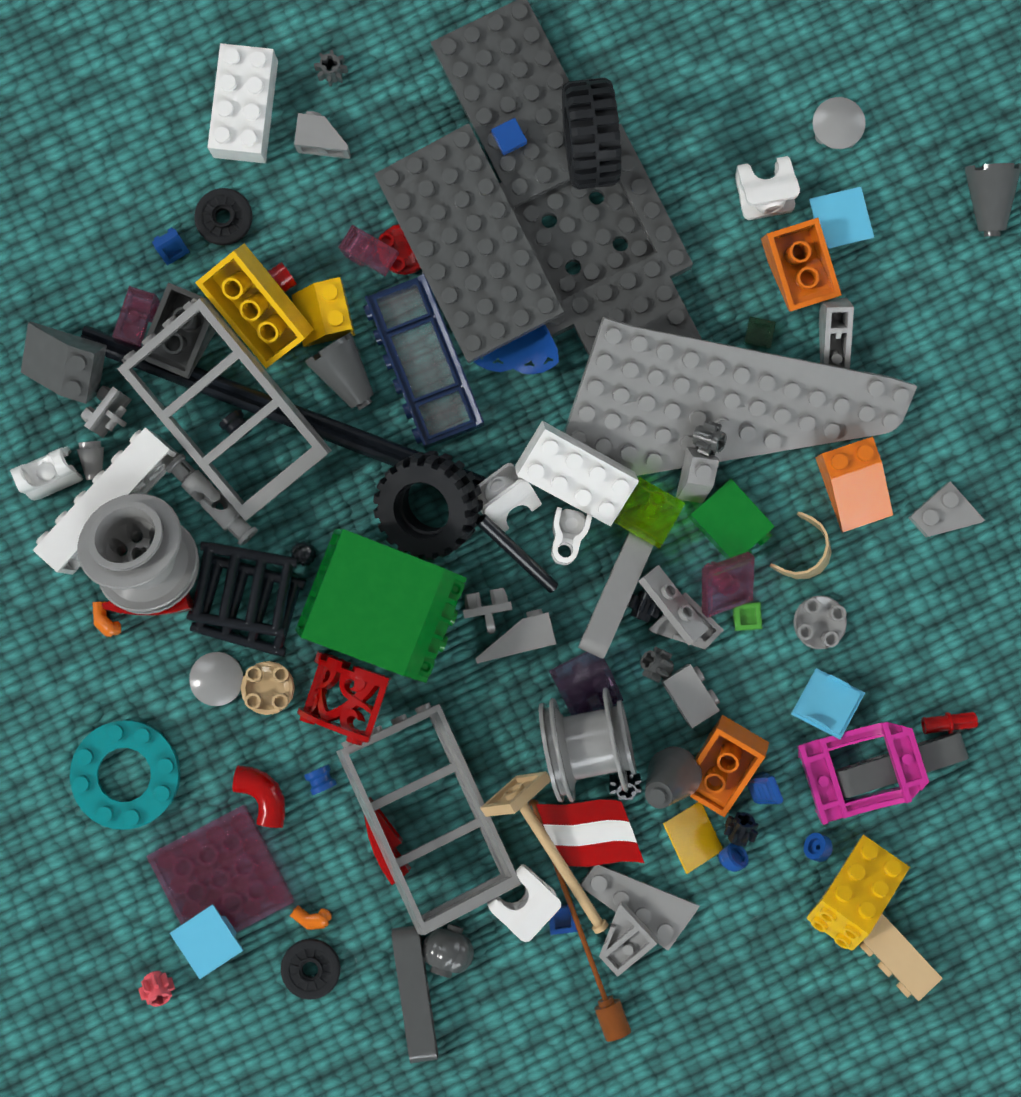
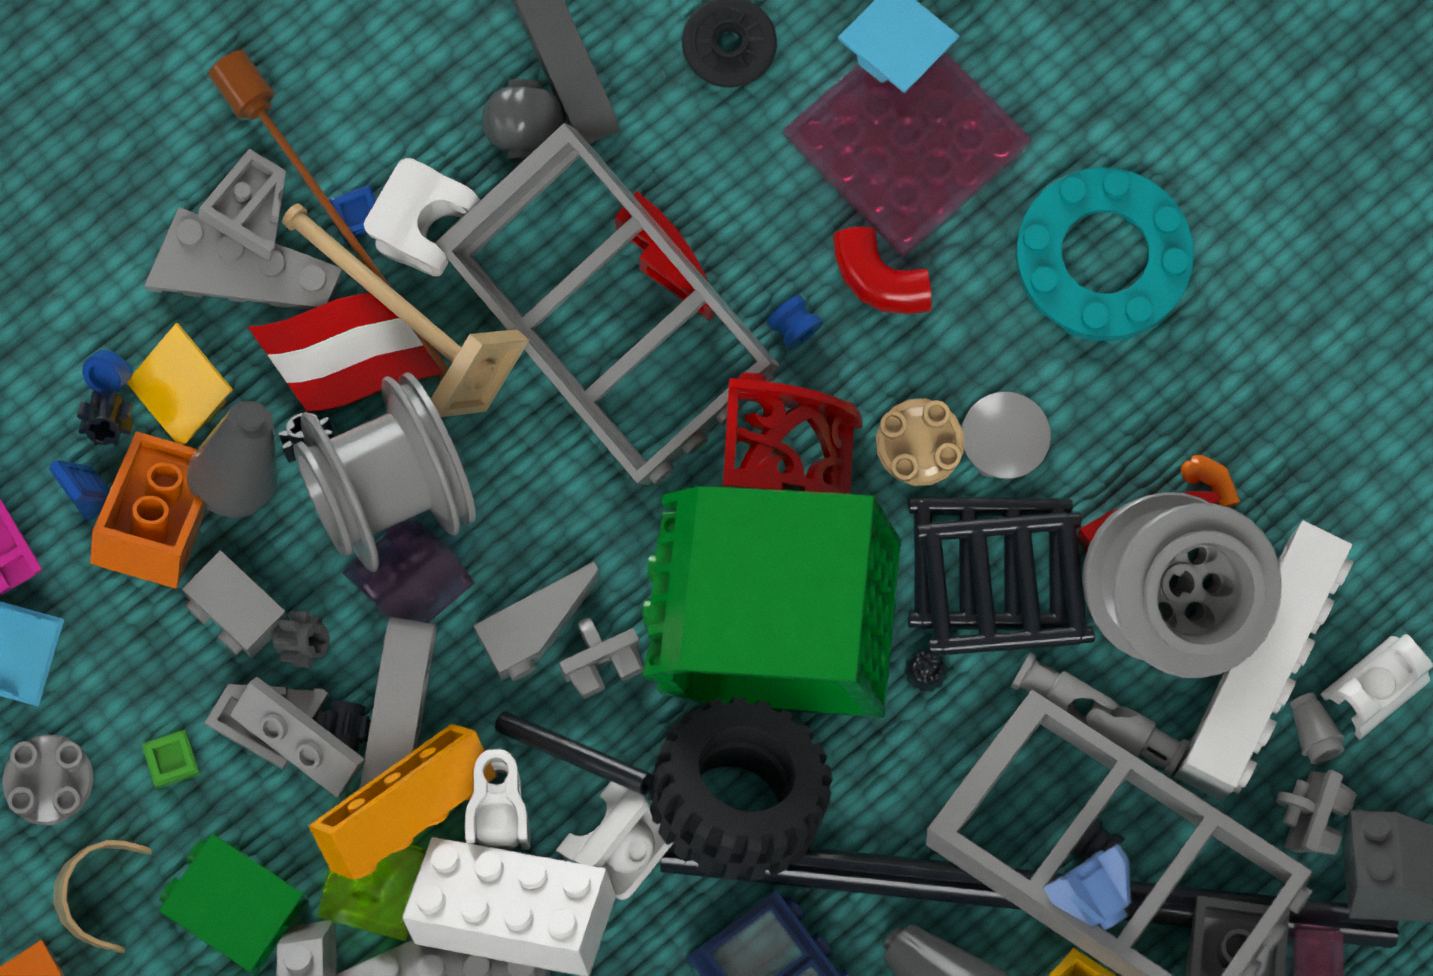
camera: 165 degrees right, 10 degrees down
(242, 386) = (1095, 889): none -> medium blue brick
(311, 921) = (746, 111): orange arm -> none
(623, 548) = (400, 803): none -> light orange brick
(727, 584) = (217, 795): clear pink tile -> none

